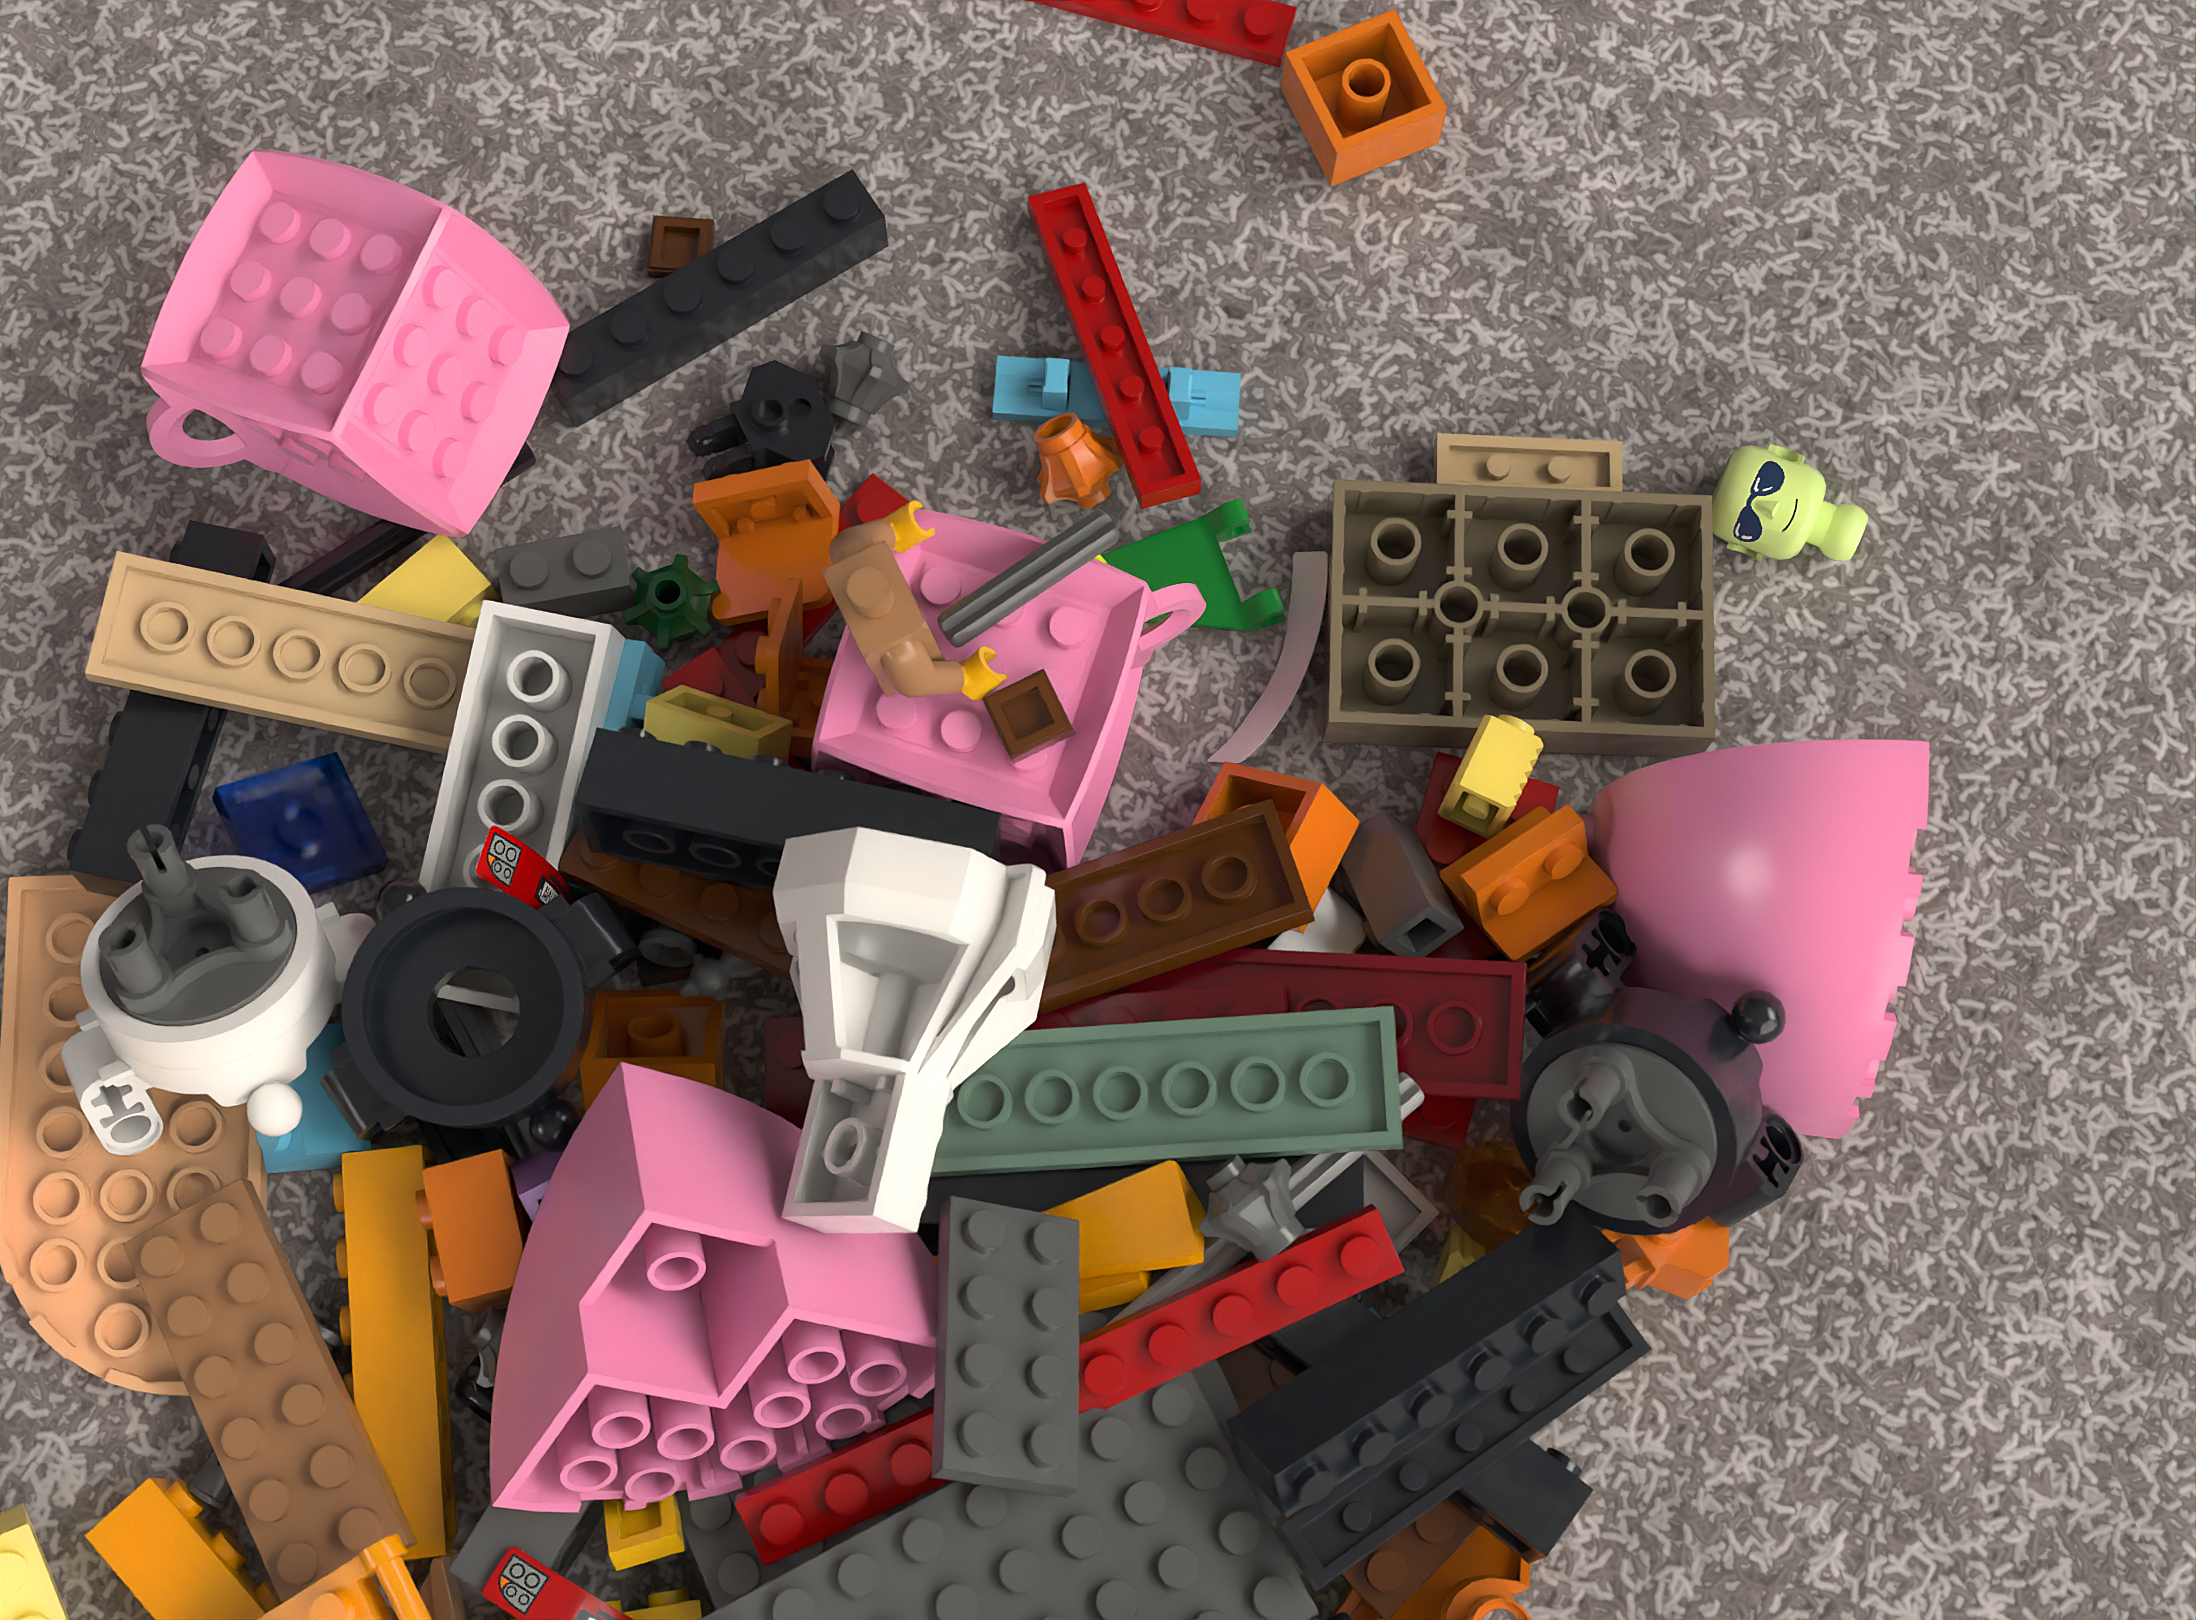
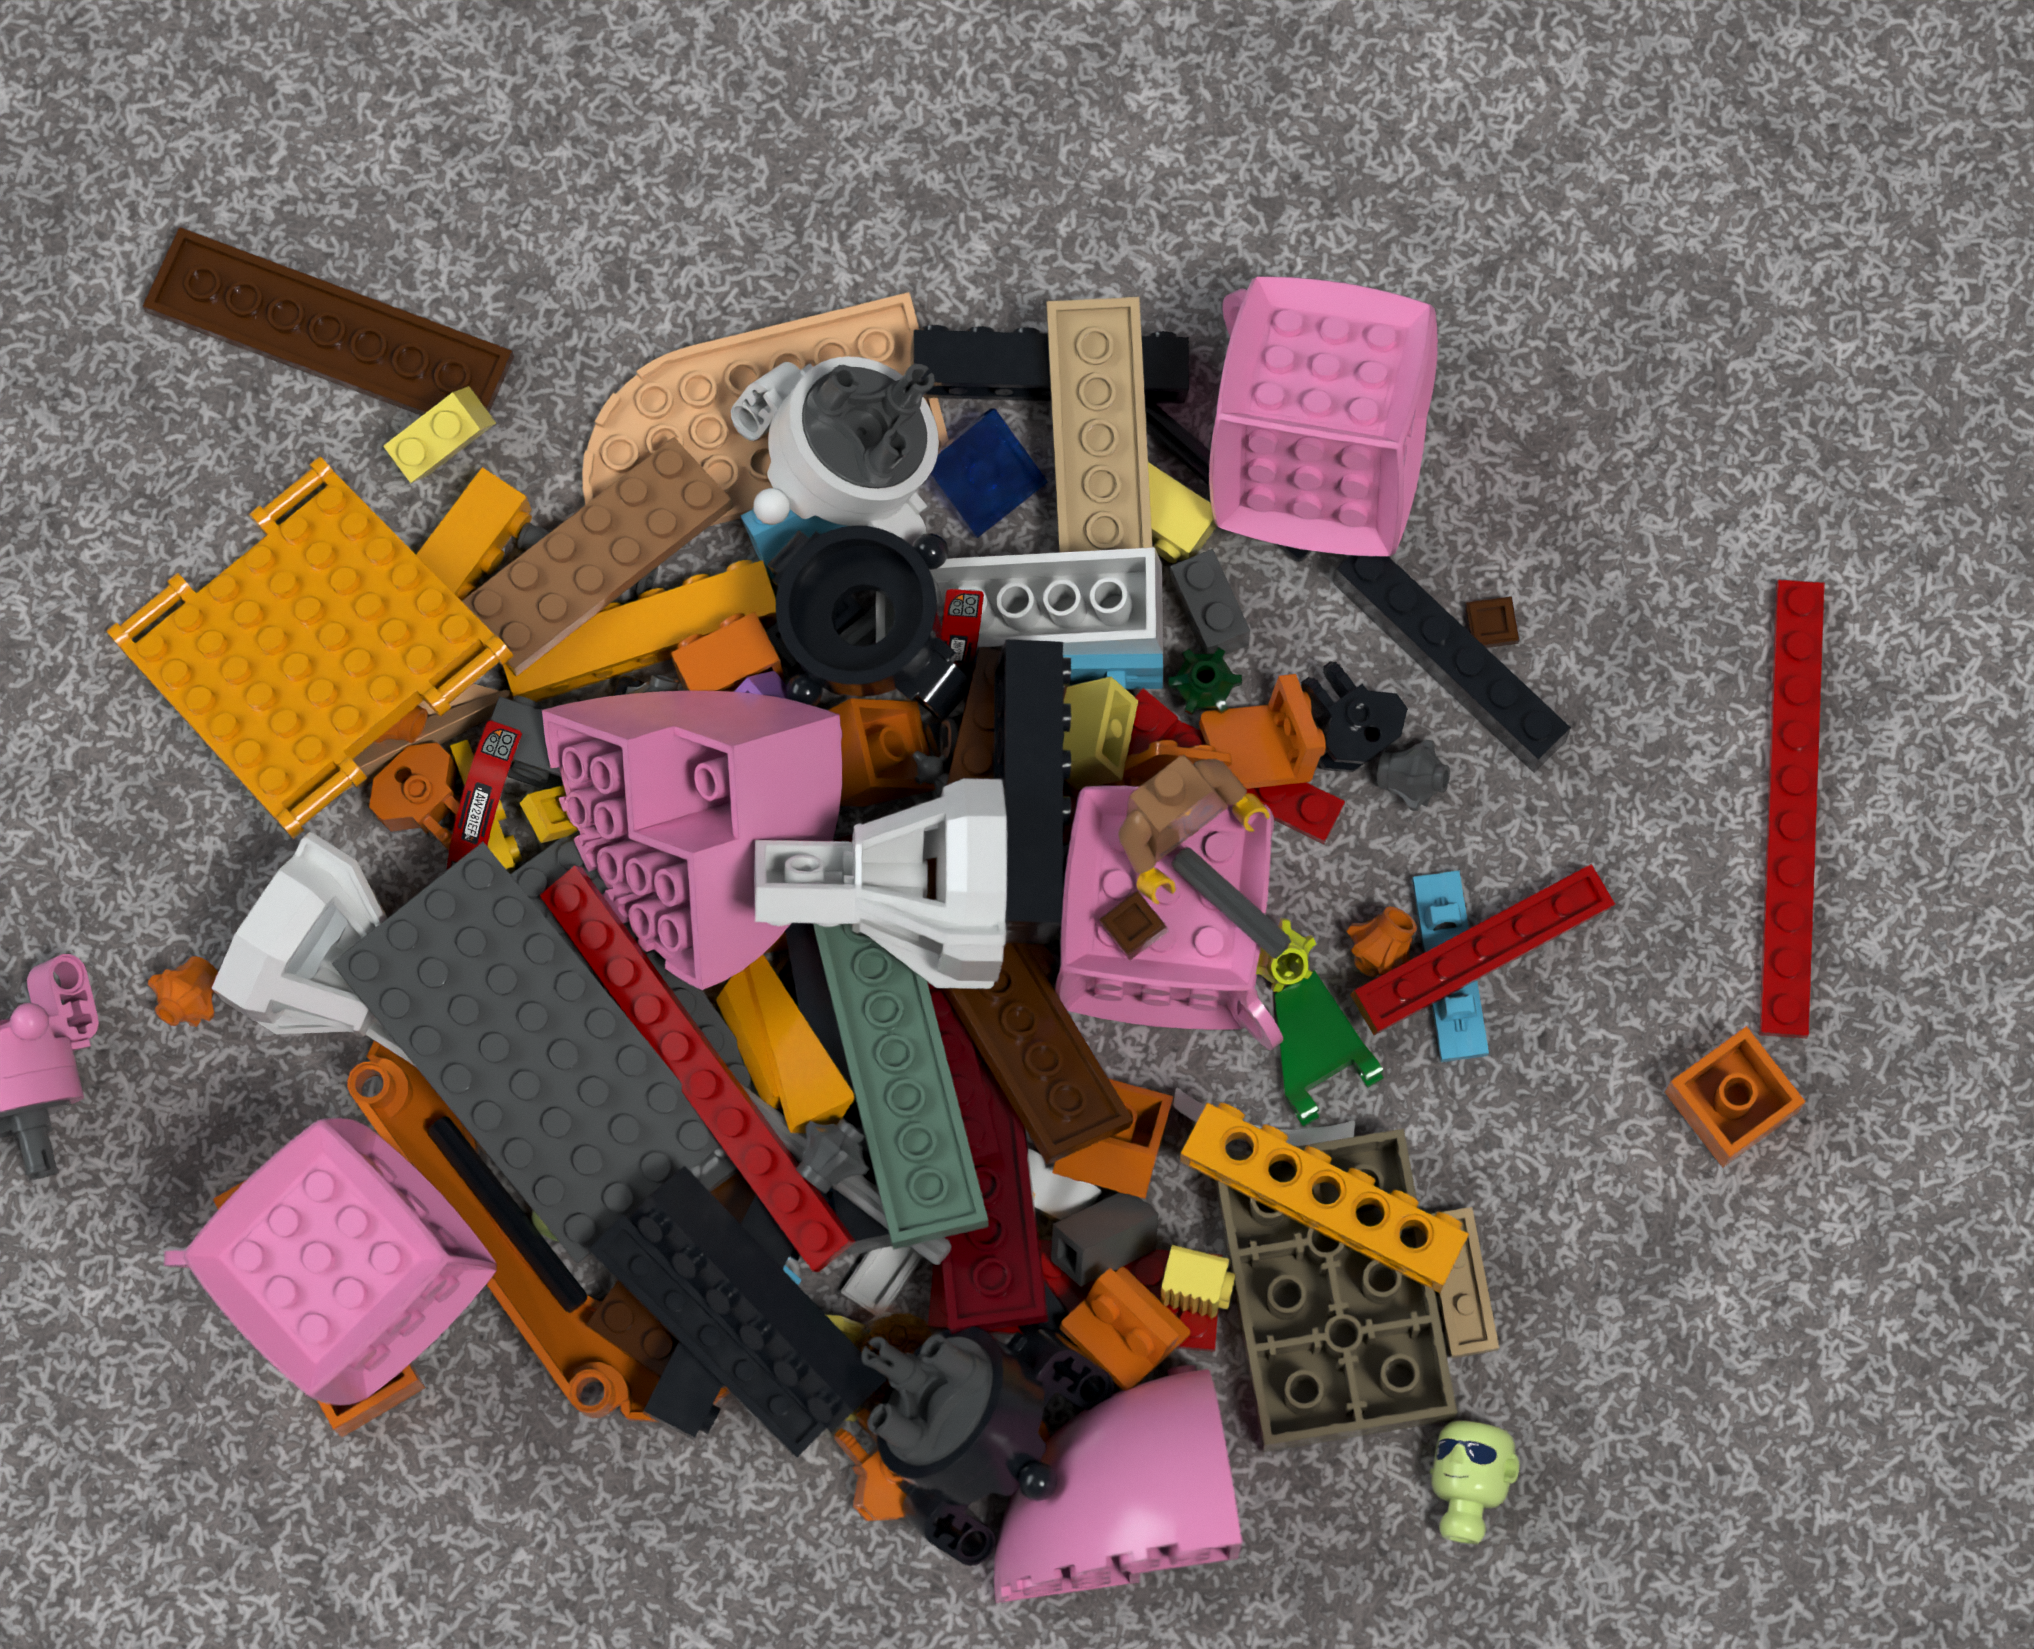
camera: 85 degrees right, 0 degrees up
(1007, 1349) = (705, 1010): dark grey plate -> none
(1523, 473) = (1338, 1220): none -> light orange brick

